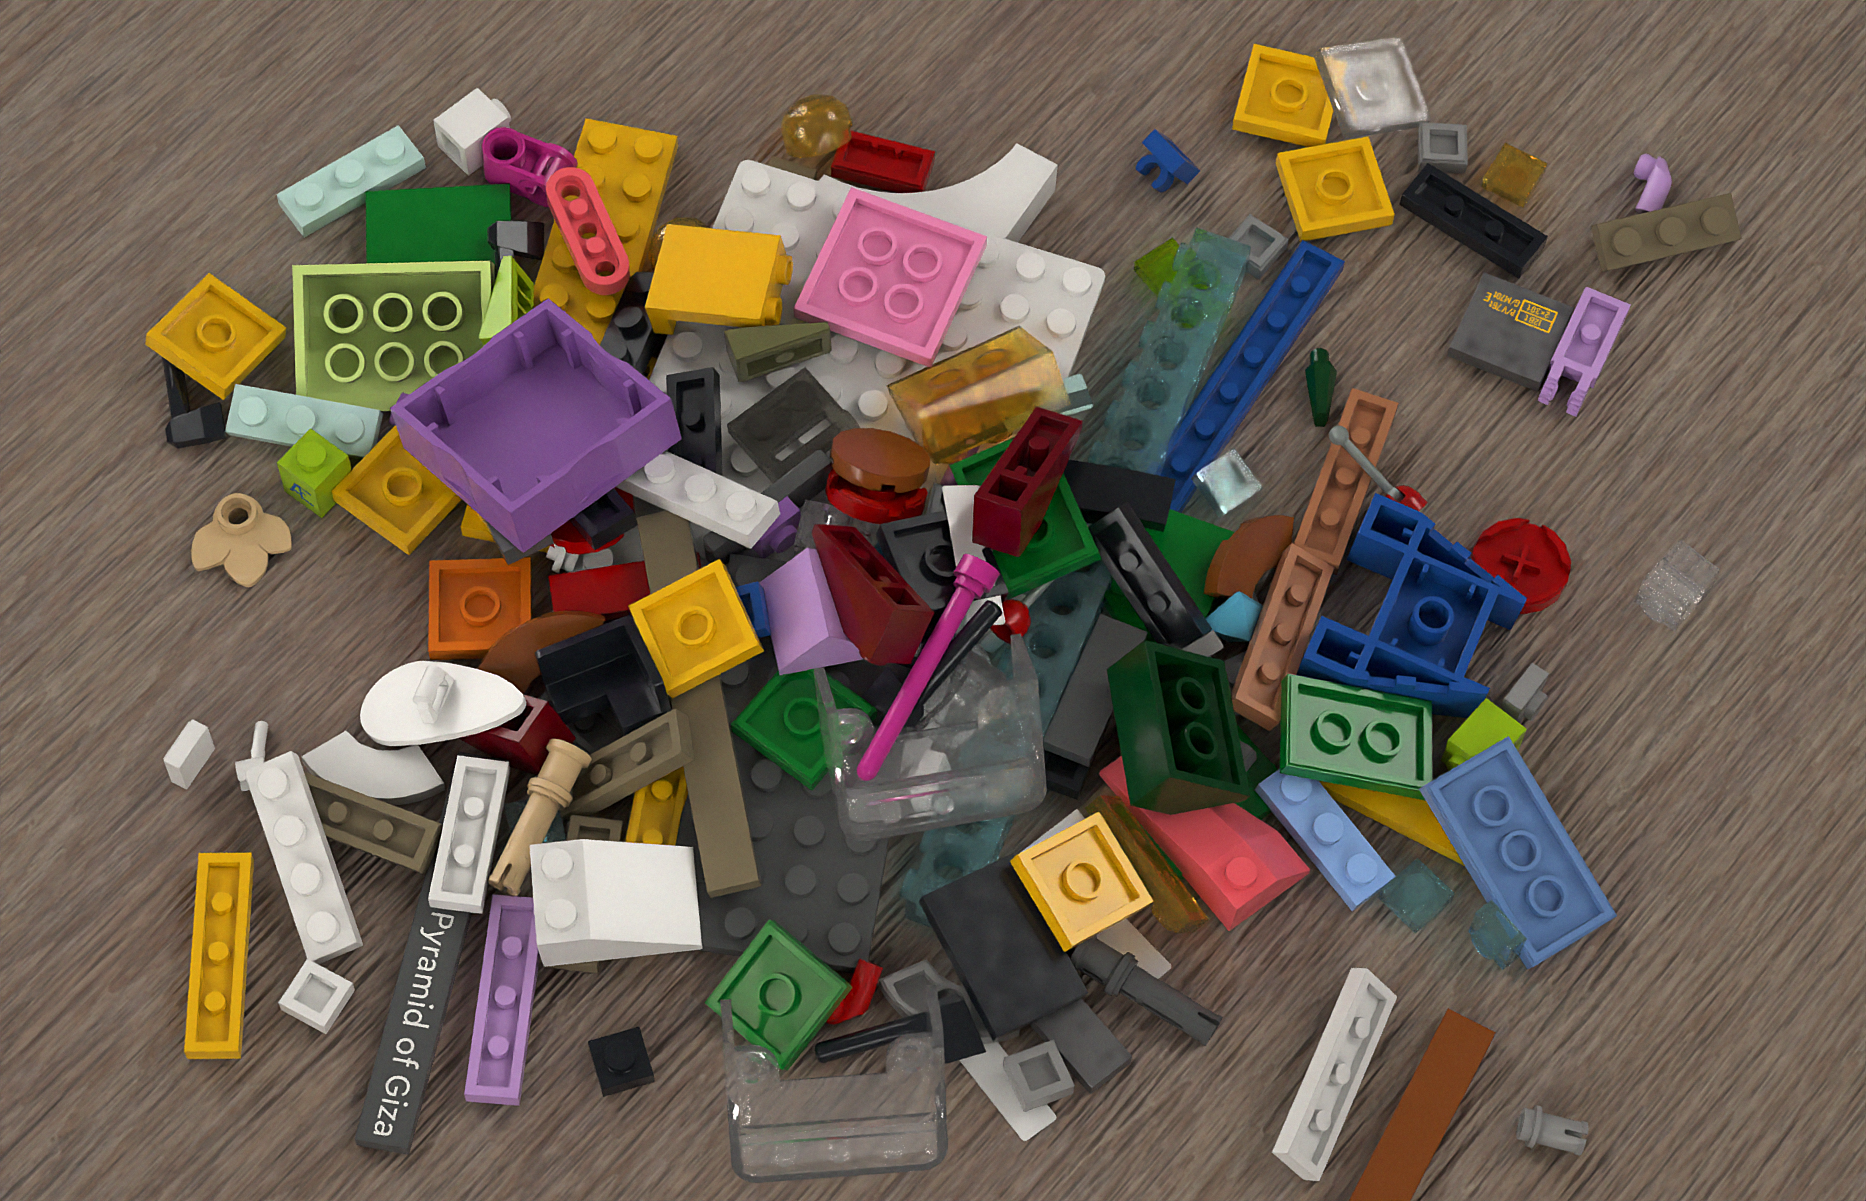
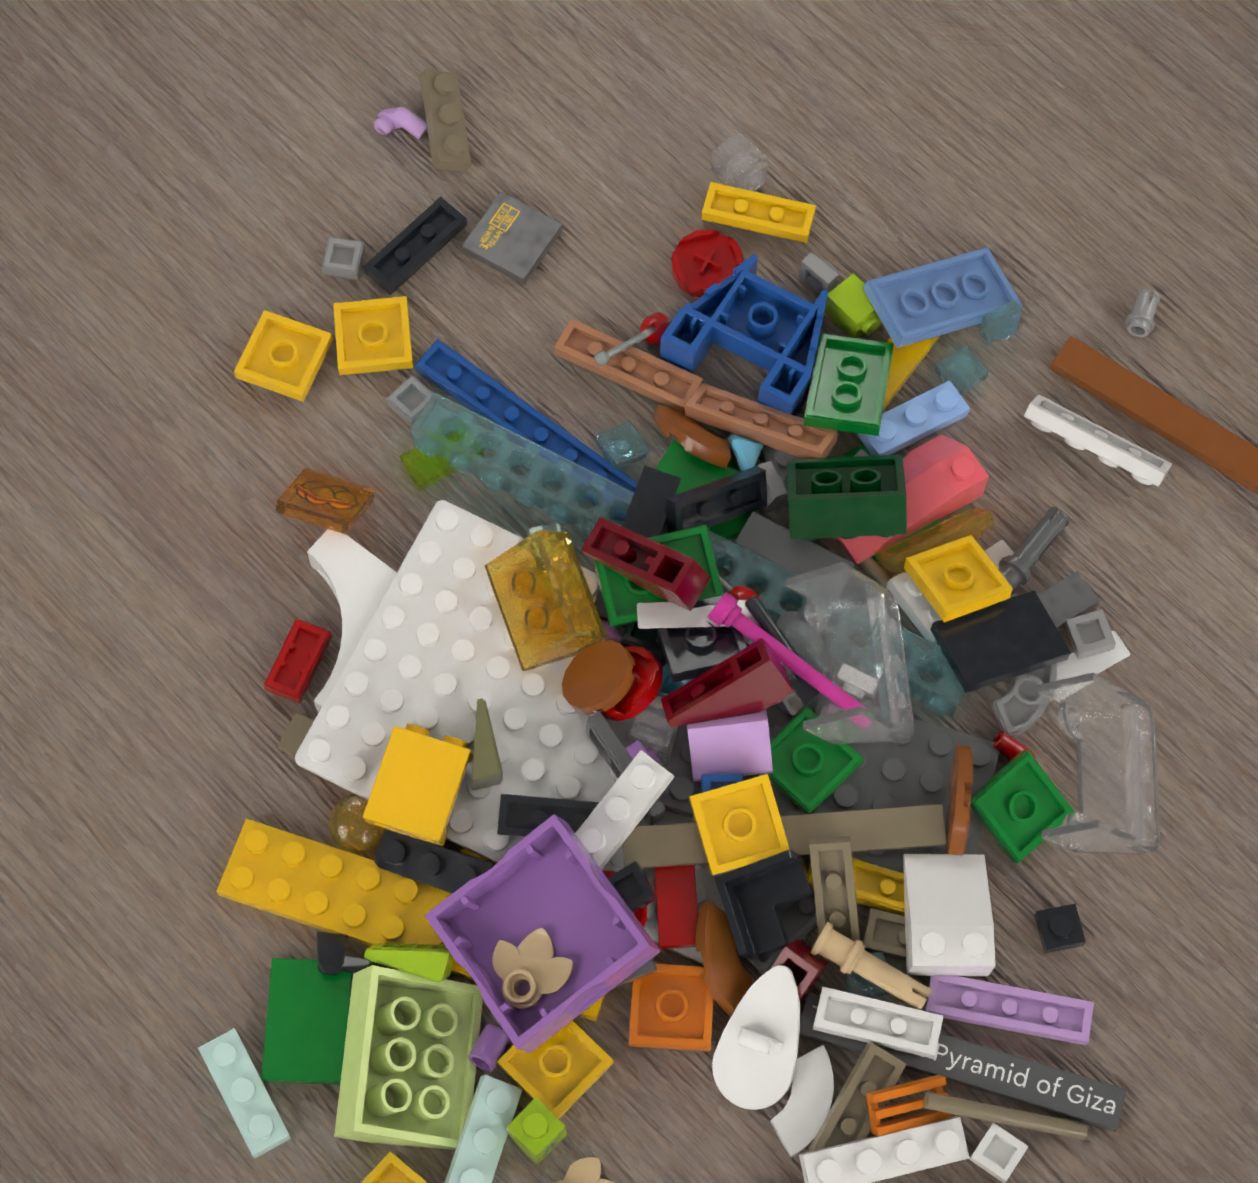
camera: 80 degrees left, 5 degrees up
(351, 887) = (875, 1114): none -> orange tile
(361, 998) = (1005, 1115): none -> dark tan bar
(465, 125) = (216, 982): white brick -> none
(495, 421) = (533, 963): none -> tan plate
(529, 165) = (261, 934): dark pink piece -> none
(585, 216) = (321, 890): coral plate -> none
(765, 898) = (959, 800): none -> dark orange tile
(784, 418) = (541, 750): clear smoke plate -> none
(815, 126) = (259, 706): clear yellow hair -> none
(890, 277) = (431, 652): bright pink plate -> none
(959, 1034) = (1050, 725): black piece -> none
(1091, 158) = (325, 500): none -> clear orange tile
(1168, 158) = (328, 447): blue tile -> none
(1320, 384) = (541, 371): dark green bar -> none
(1372, 87) = (288, 294): clear tile -> none
(1514, 175) = (379, 211): clear yellow plate -> none
(1585, 346) = (536, 190): lavender hinge -> none
(1608, 617) = (758, 212): none -> yellow plate

